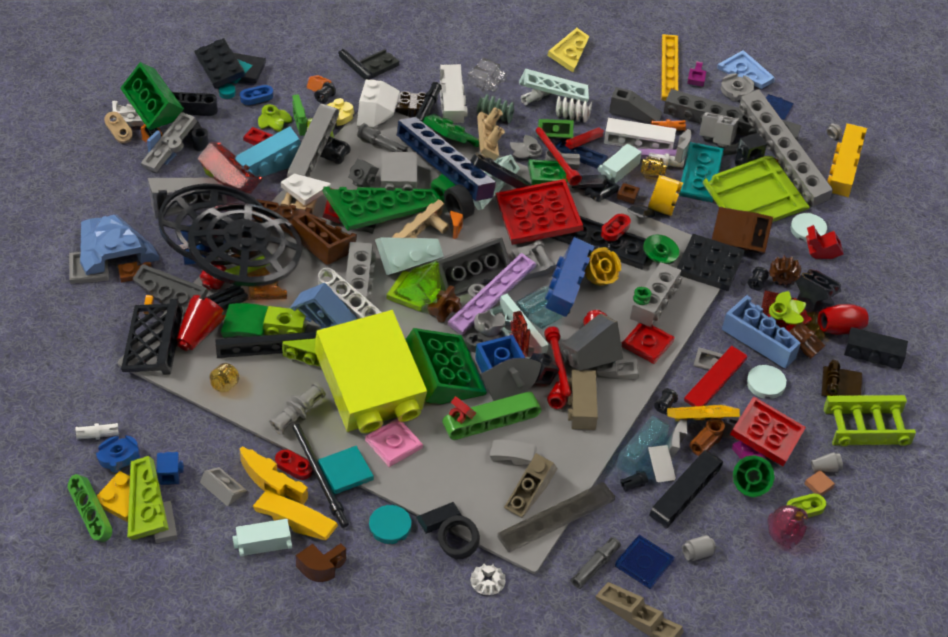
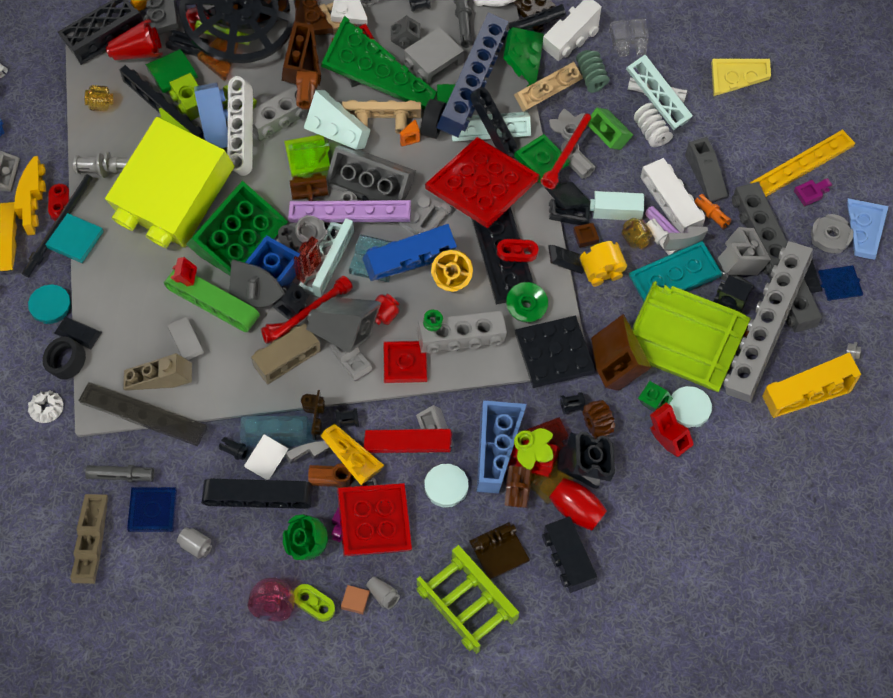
camera: 55 degrees right, 15 degrees up
(360, 244) = (306, 84): none -> dark orange piece
(393, 442) = (129, 251): bright pink tile -> none
(584, 138) = (621, 157): red axle -> none
(587, 155) = (605, 168): dark blue tile -> none
(654, 404) = (315, 405): none -> dark brown hinge
(793, 235) = (654, 396): none -> green brick

